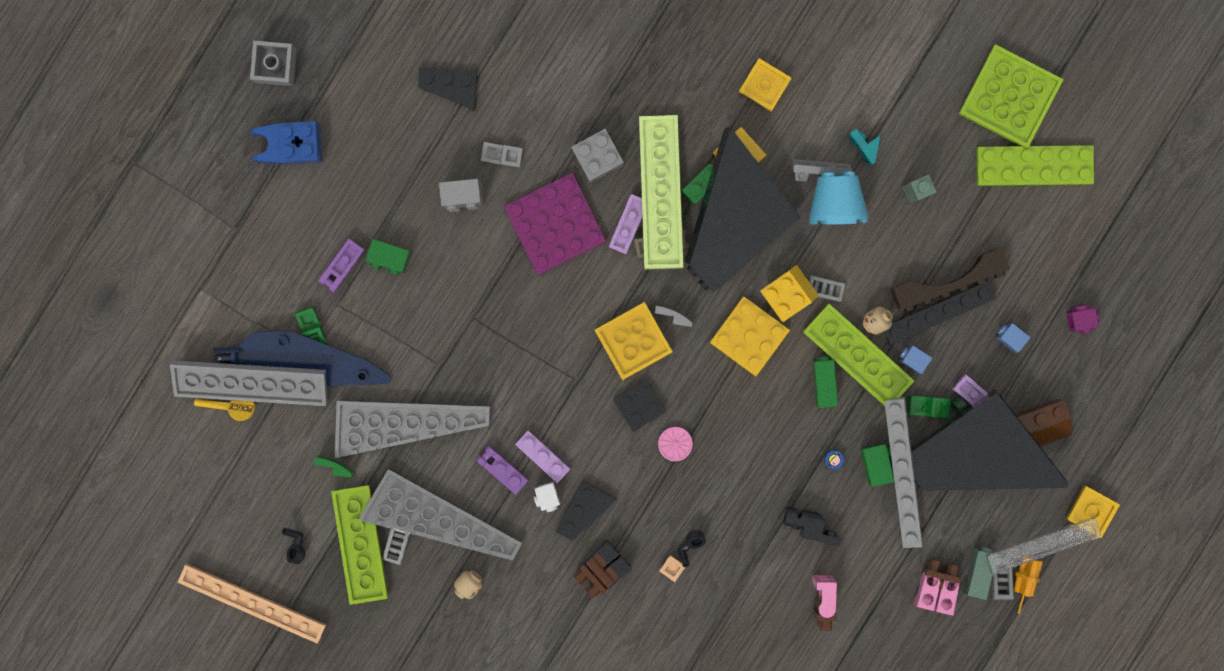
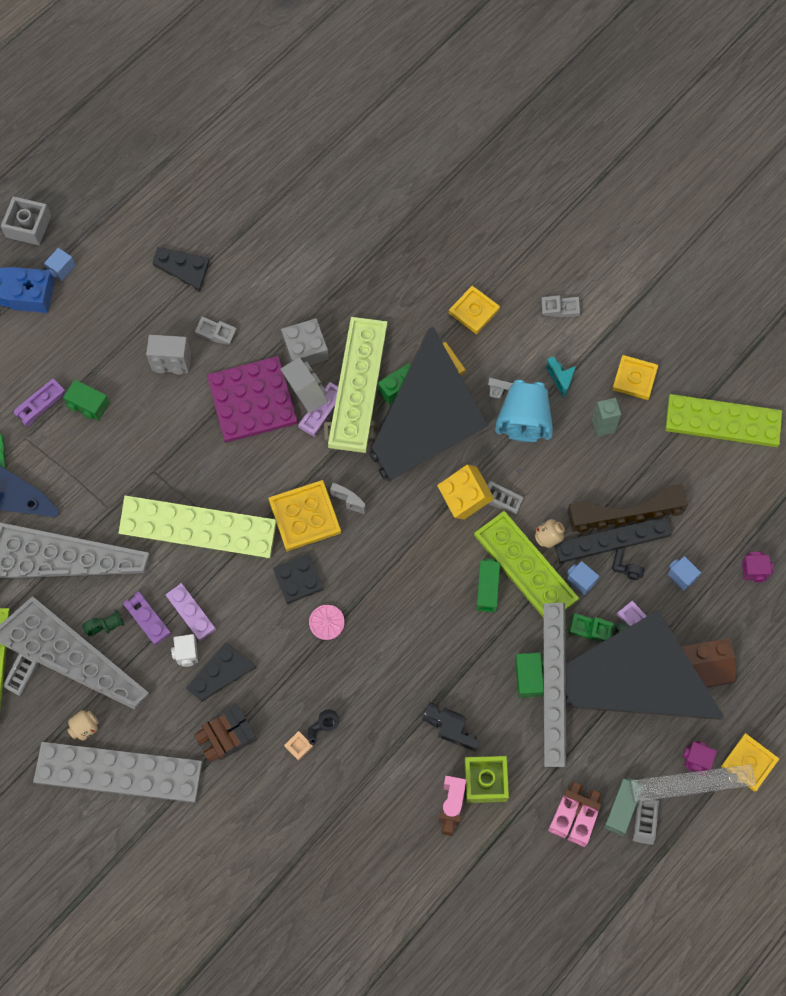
camera: 10 degrees right, 20 degrees down
(321, 107) = (60, 264): none -> medium blue brick
(466, 483) = (108, 623): none -> dark green connector
(510, 619) = (118, 772): none -> light grey plate
(530, 371) = (197, 526): none -> yellowish green plate
(608, 206) = (305, 384): none -> light grey brick
(749, 336) = (420, 531): yellow plate -> none
(834, 460) = (486, 665): blue tile -> none
(852, 571) = (486, 779): none -> lime brick
(854, 64) = (558, 307): none -> light grey slope
(941, 134) = (635, 377): none -> yellow plate
(962, 344) = (632, 571): none -> black plate
(1010, 96) = (706, 355): lime plate -> none
(1027, 579) = (673, 820): light orange piece -> none
(1045, 516) = (698, 757): none -> magenta brick

